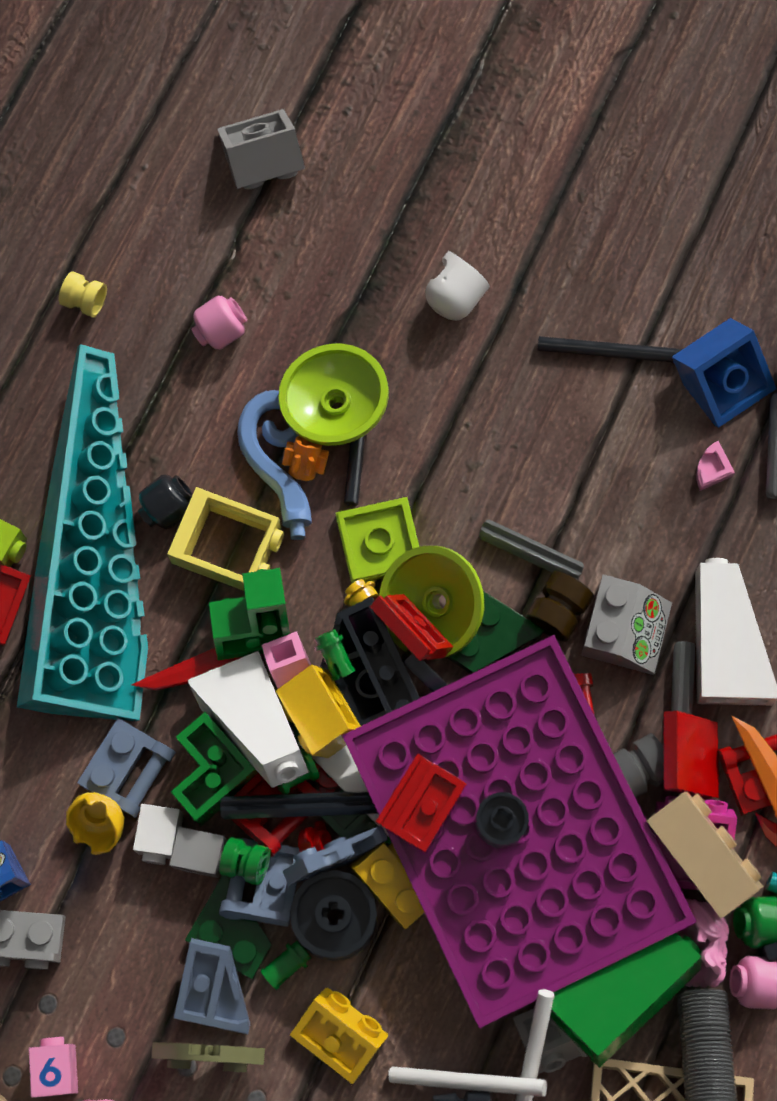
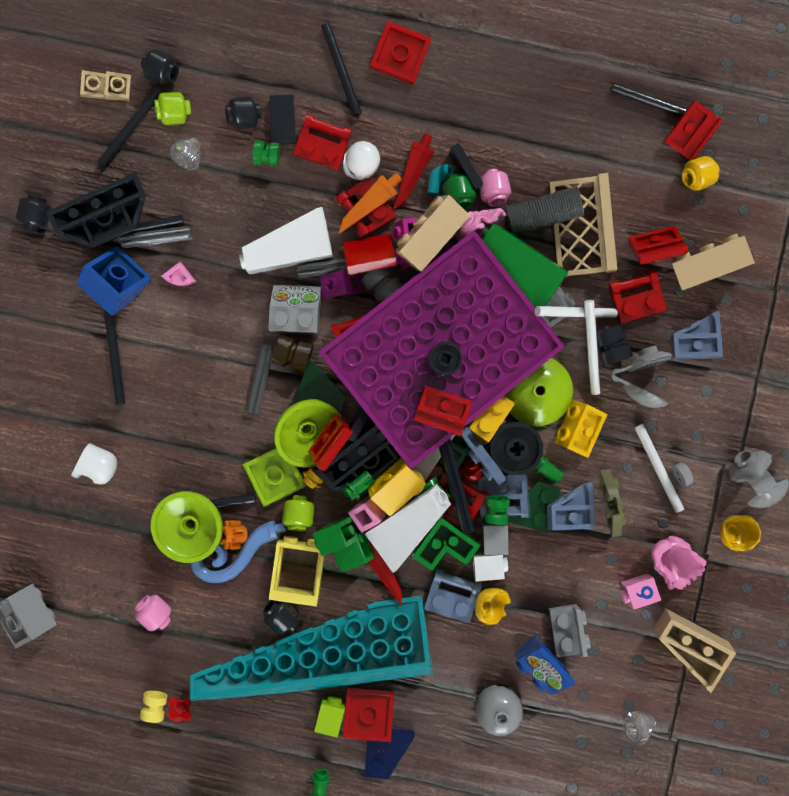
camera: 110 degrees left, 15 degrees up
(60, 325) = (179, 715): none -> red plate
(312, 560) = (298, 513): none -> lime head
(390, 996) = (544, 408): none -> lime dish
(652, 698) = (339, 284): none -> magenta bracket

